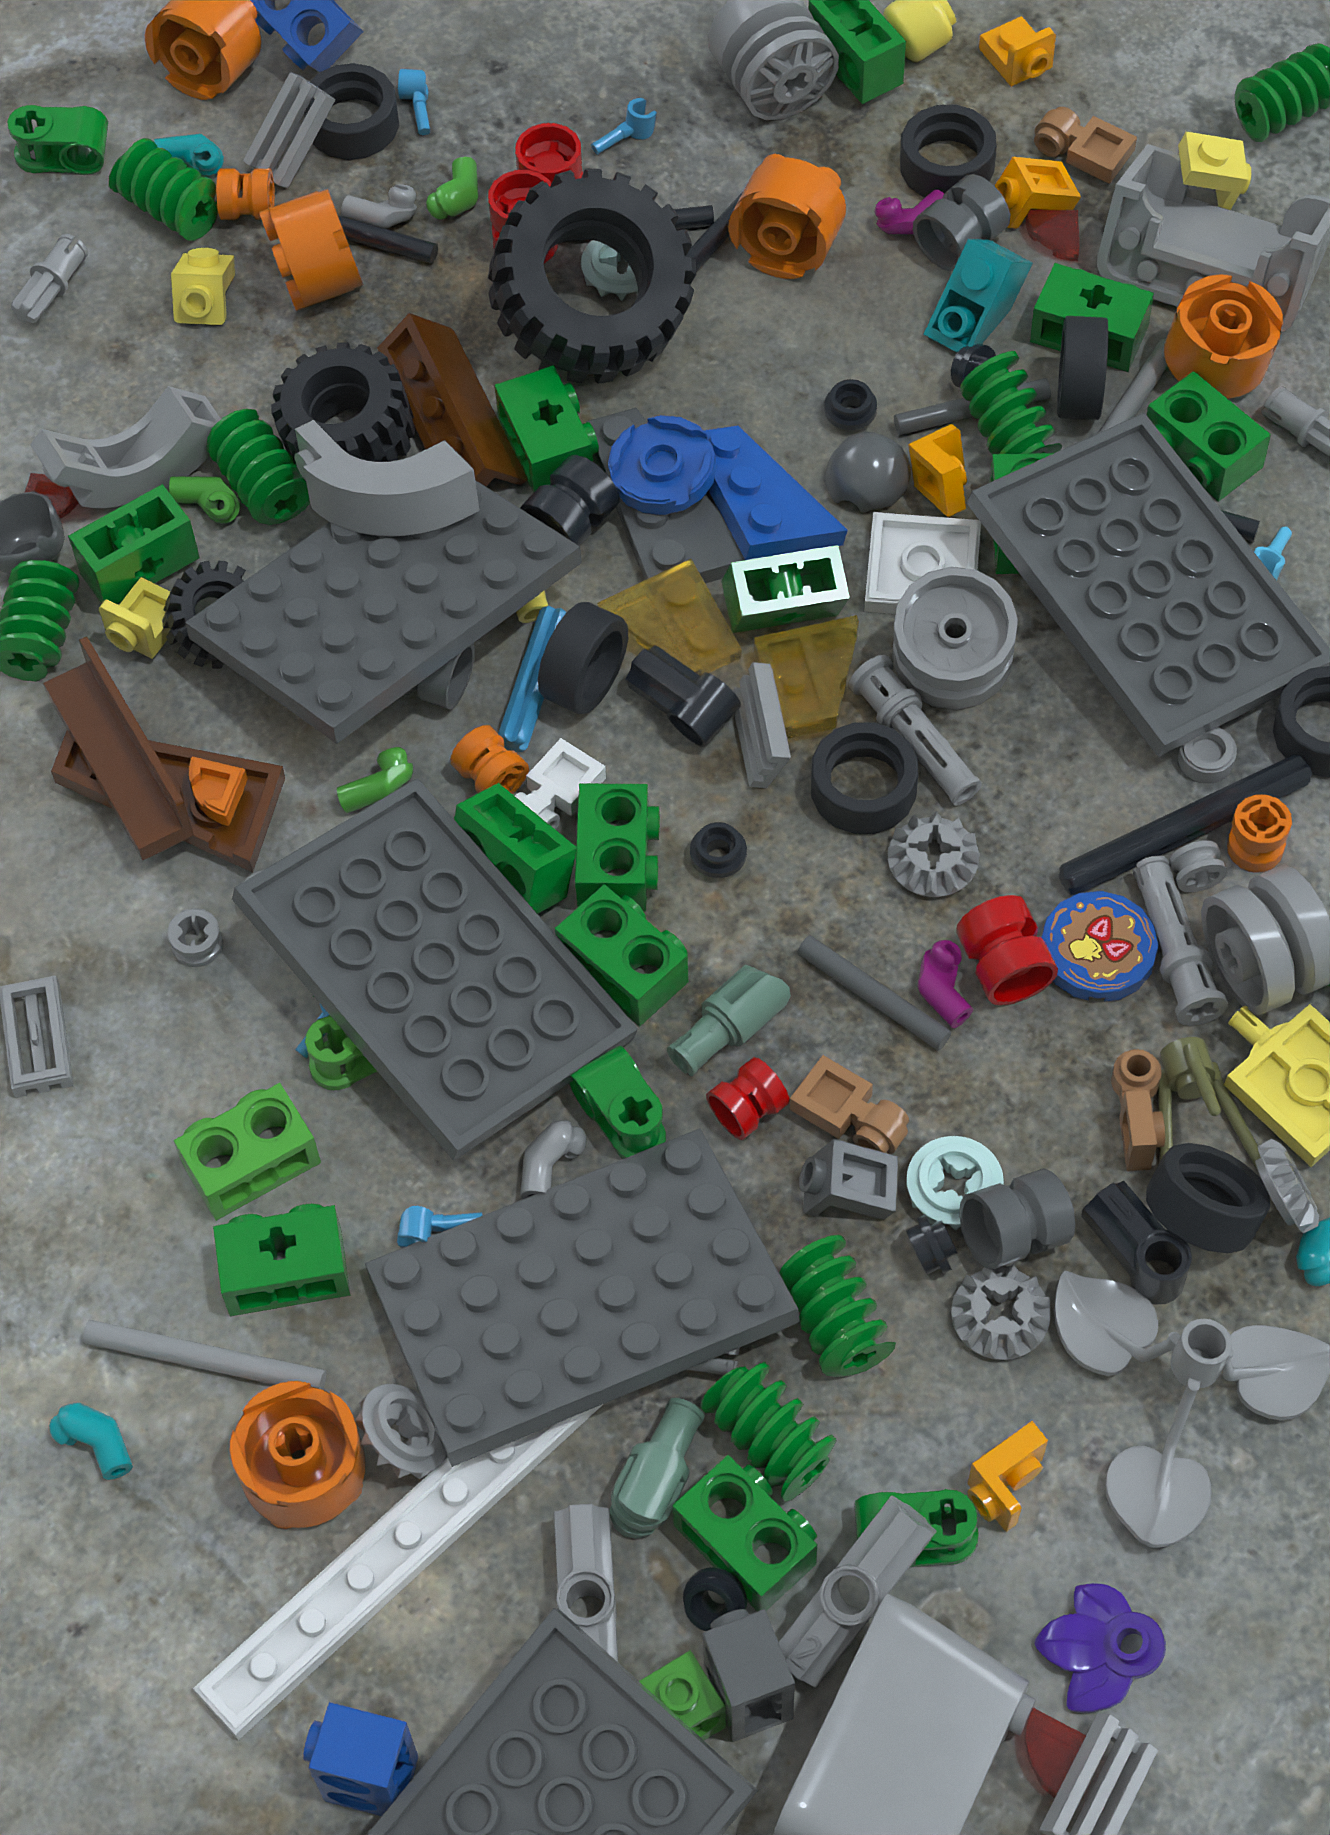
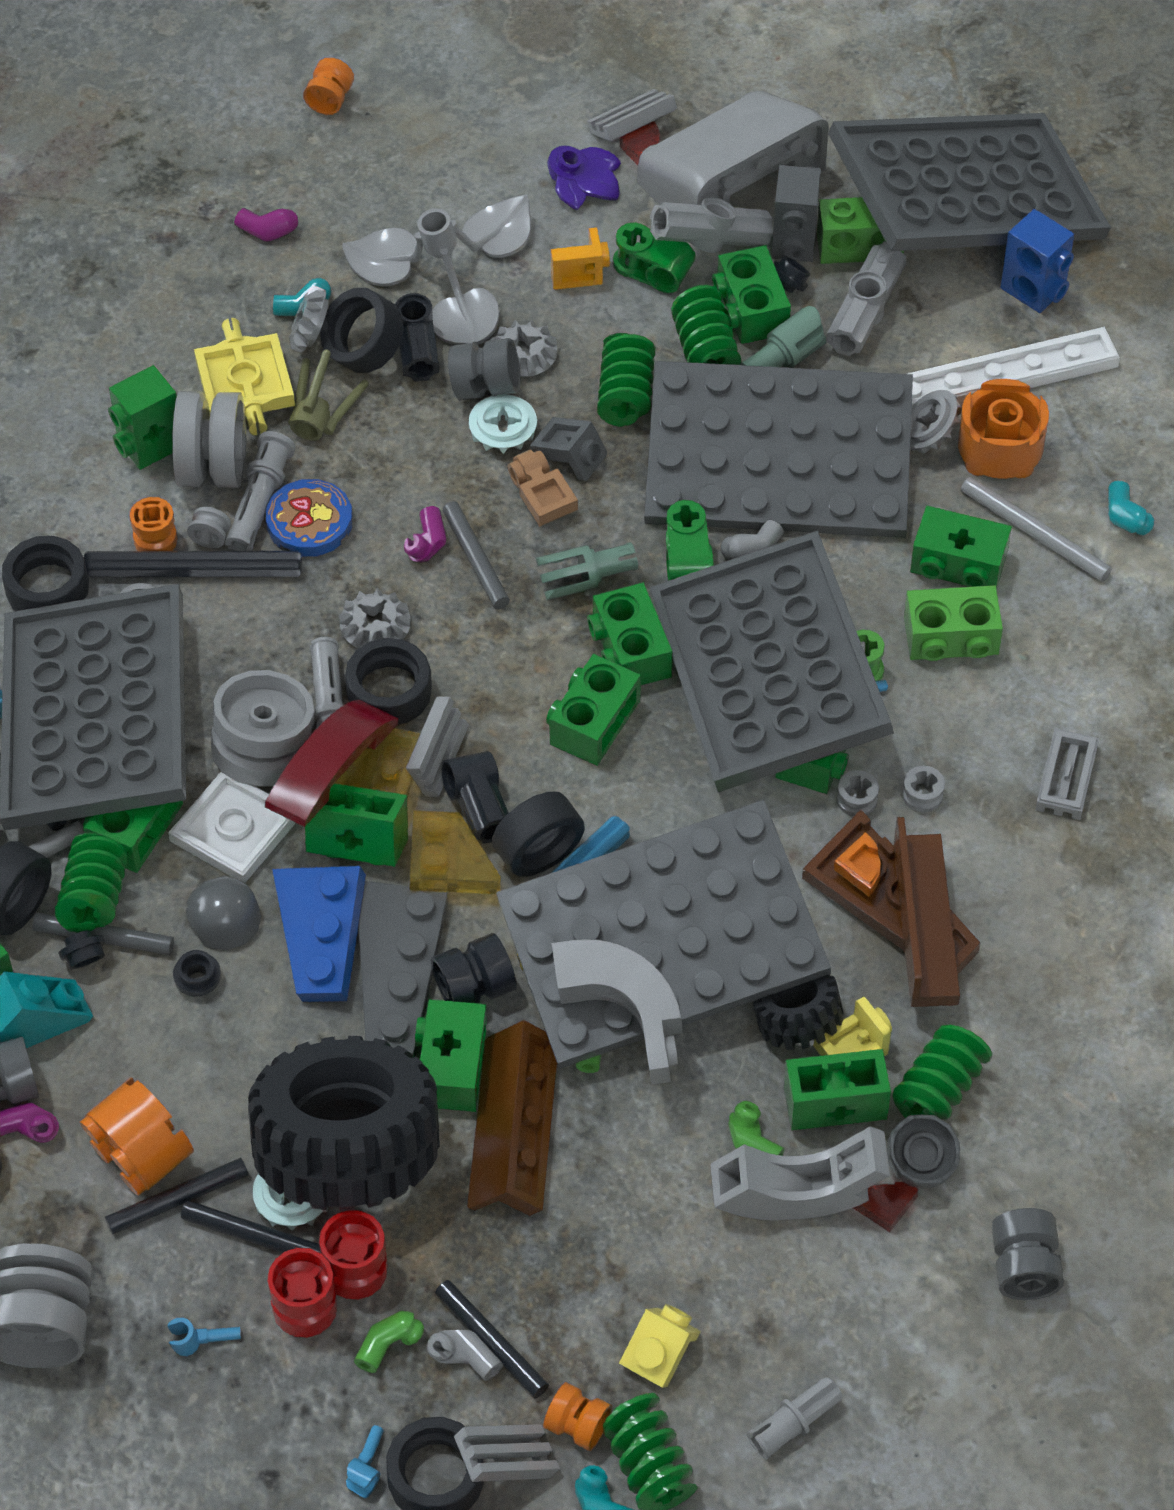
camera: 155 degrees left, 5 degrees down
(258, 467) = (699, 1116): green piece -> none
(311, 249) = (554, 1302): orange brick -> none
(343, 381) = (616, 1096): black tyre -> none
(419, 1222) = (858, 543): dark azure hand -> none
(487, 762) = (648, 806): orange wheel -> none
(519, 845) = (669, 723): green brick -> none
(557, 780) = (604, 776): white plate -> none
(662, 465) = (383, 964): blue tile -> none
(713, 837) = (520, 674): black plate -> none
(747, 1098) = (598, 516): red wheel -> none
(846, 616) = (324, 759): none -> dark red slope
(932, 1244) = (542, 390): black plate -> none
(939, 469) = (177, 866): light orange bracket -> none
(1010, 955) = (375, 523): red wheel -> none
(1136, 1081) = (369, 397): medium nougat plate -> none

